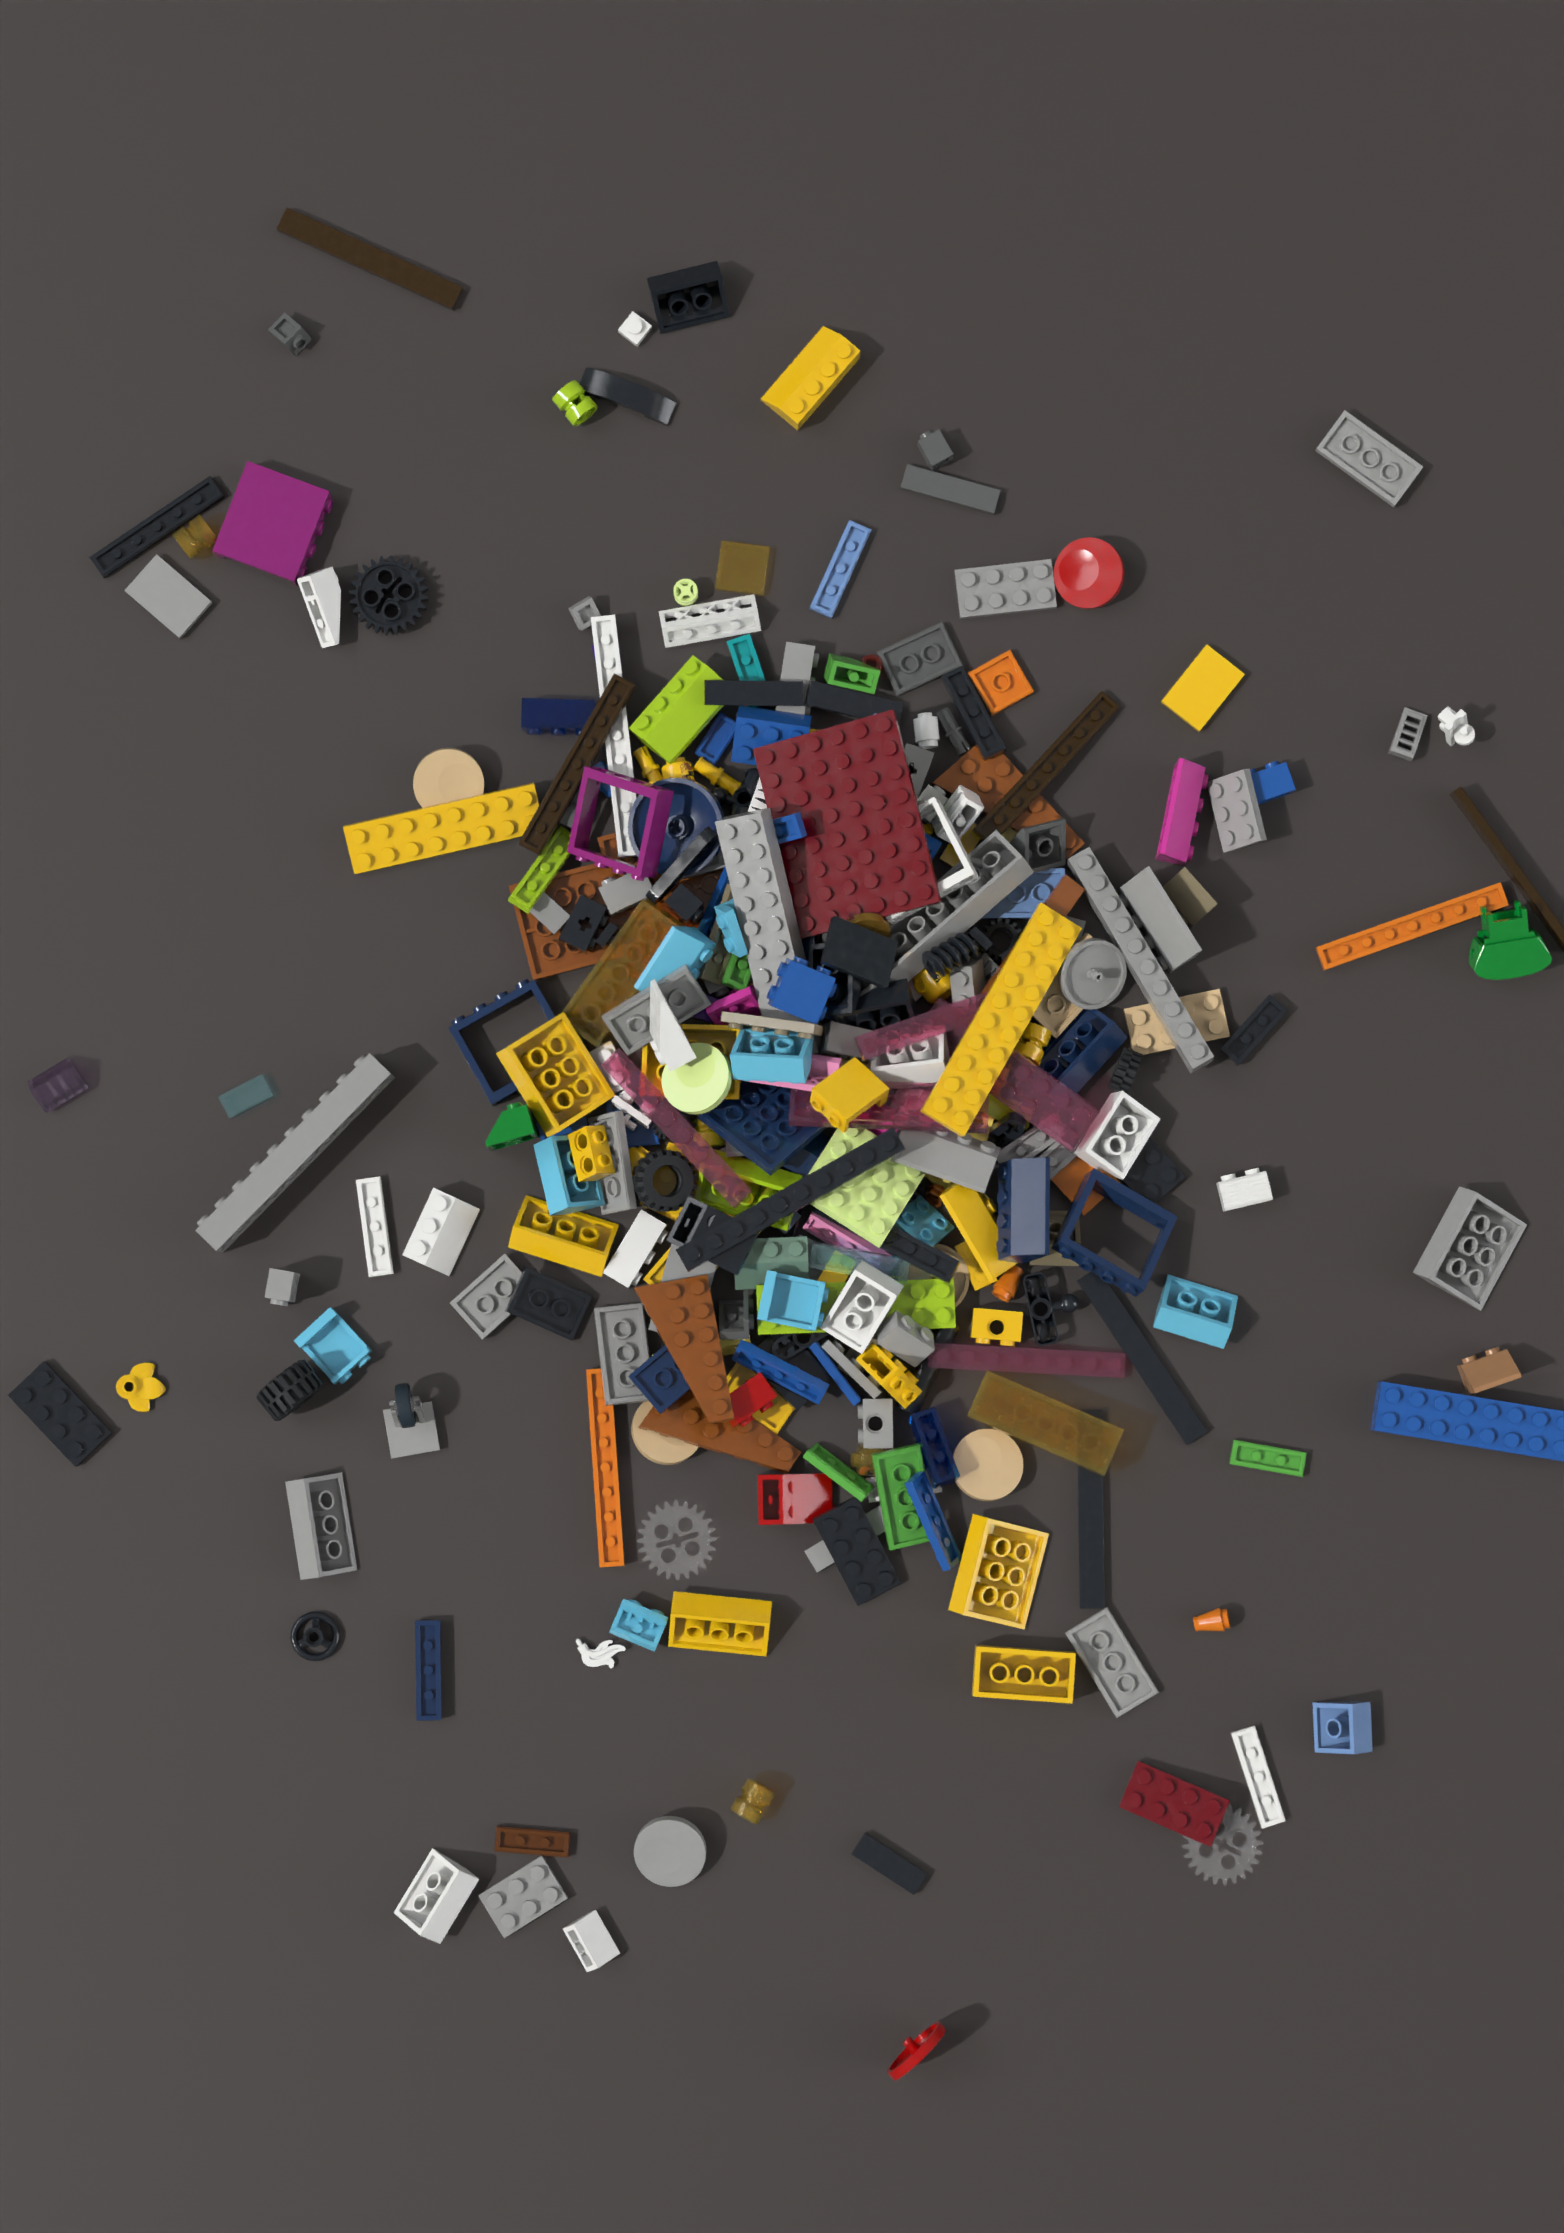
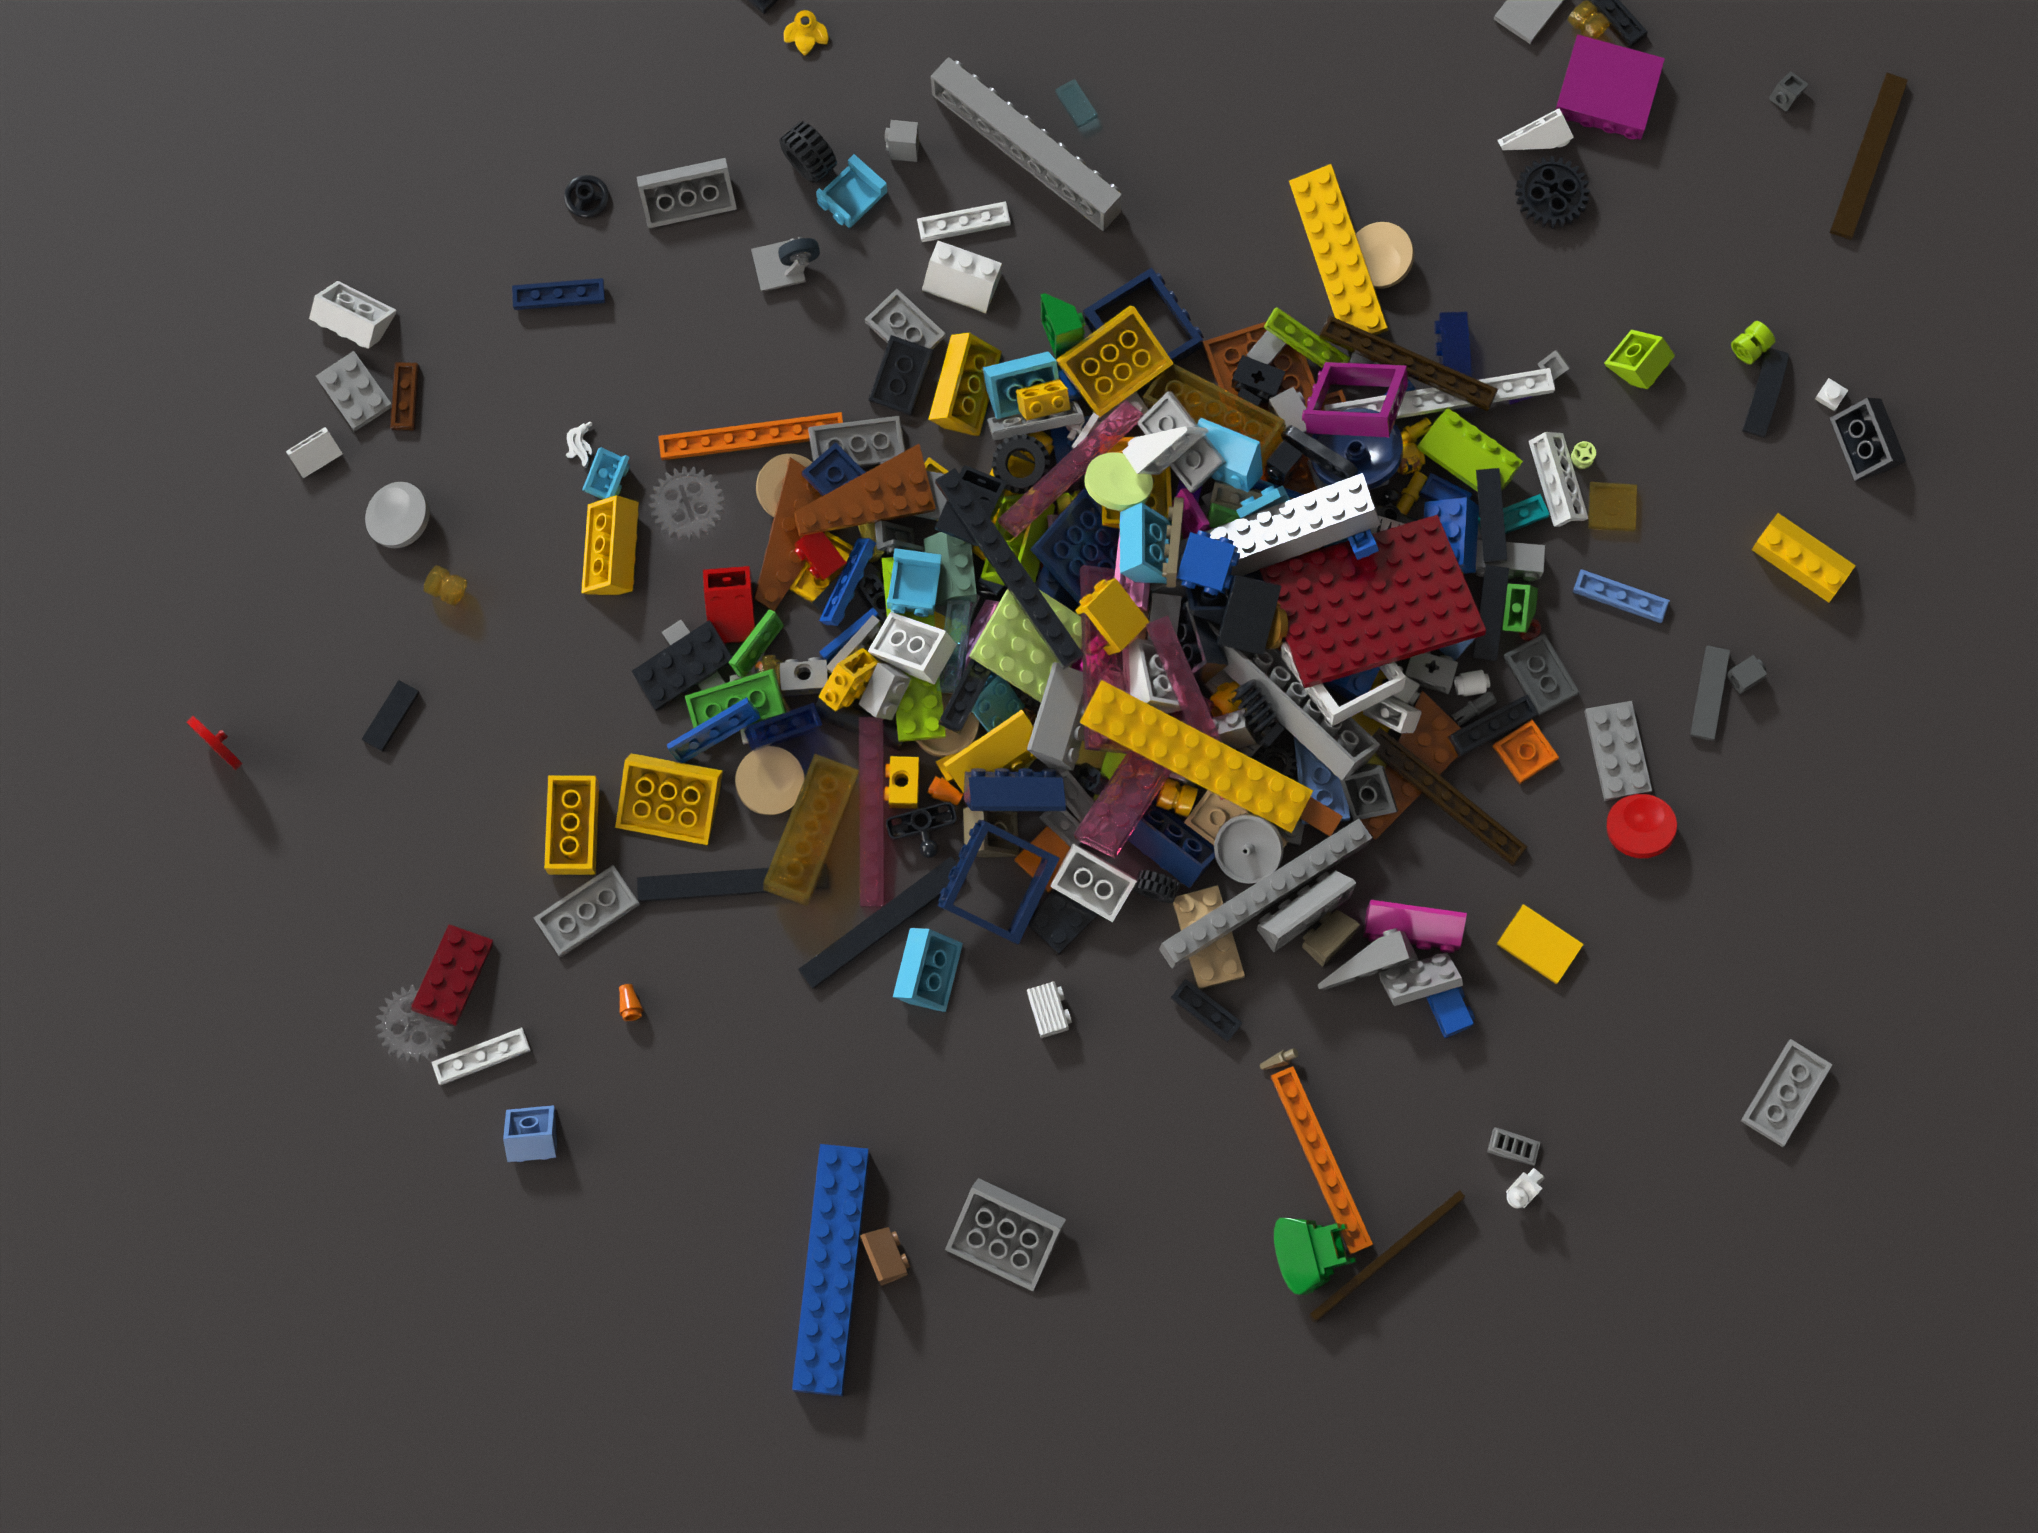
camera: 90 degrees right, 10 degrees down
(583, 522) = (1640, 358): none -> lime slope
(636, 1249) = (955, 447): white brick -> none
(1212, 844) = (1385, 953): none -> light grey wedge
(1267, 1458) = (789, 1049): bright green tile -> none
(1306, 959) = (1280, 1059): none -> dark tan bar

